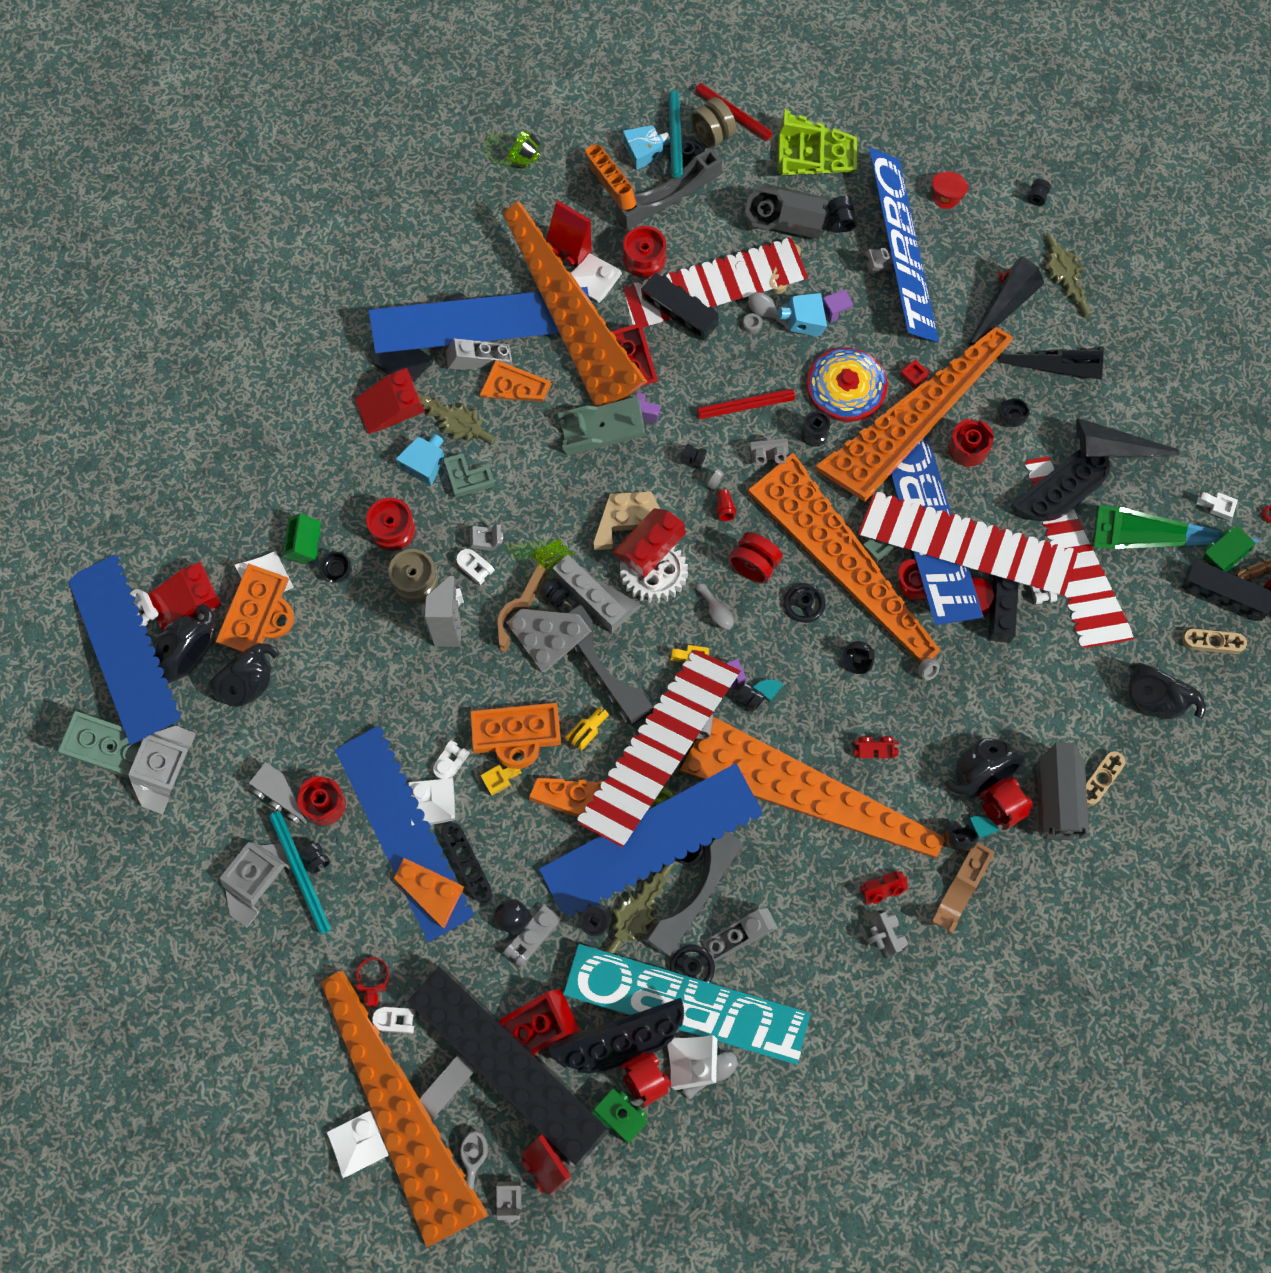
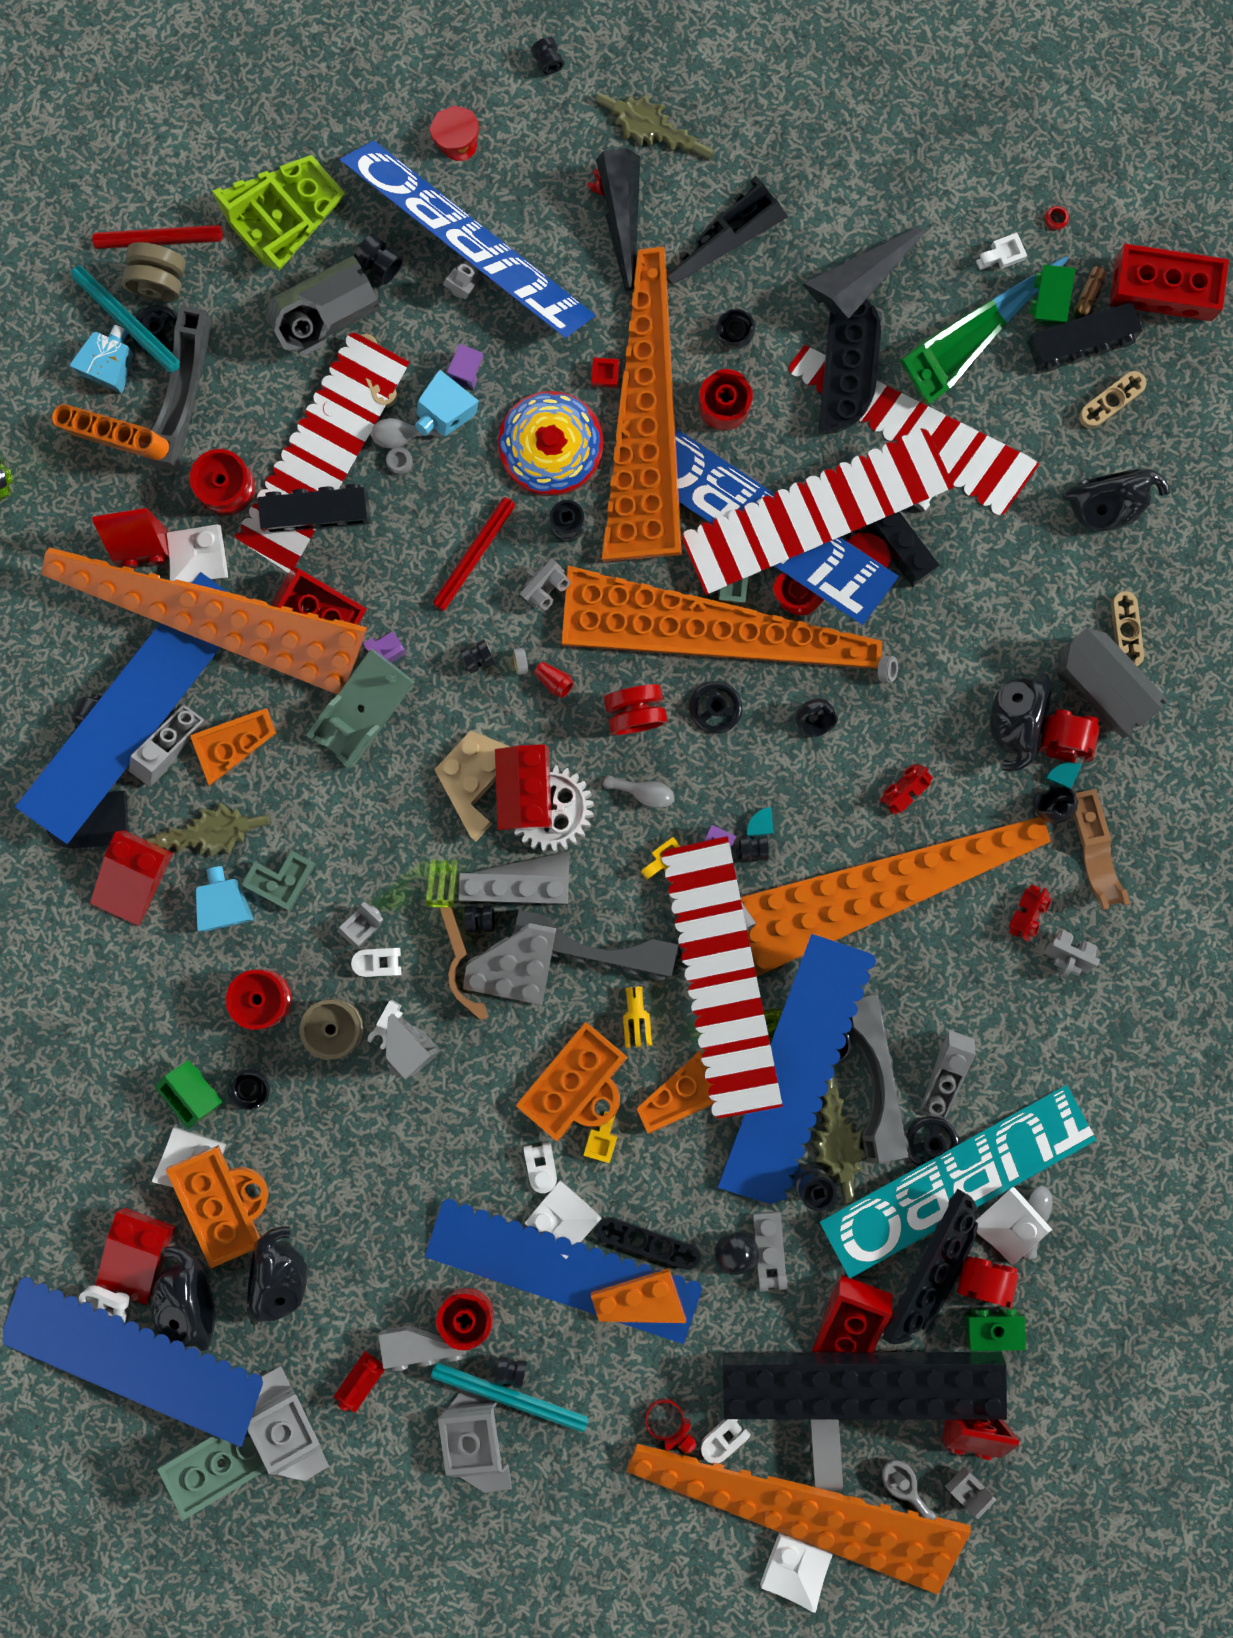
camera: 45 degrees left, 15 degrees up
(227, 783) = (359, 1382): none -> red hinge

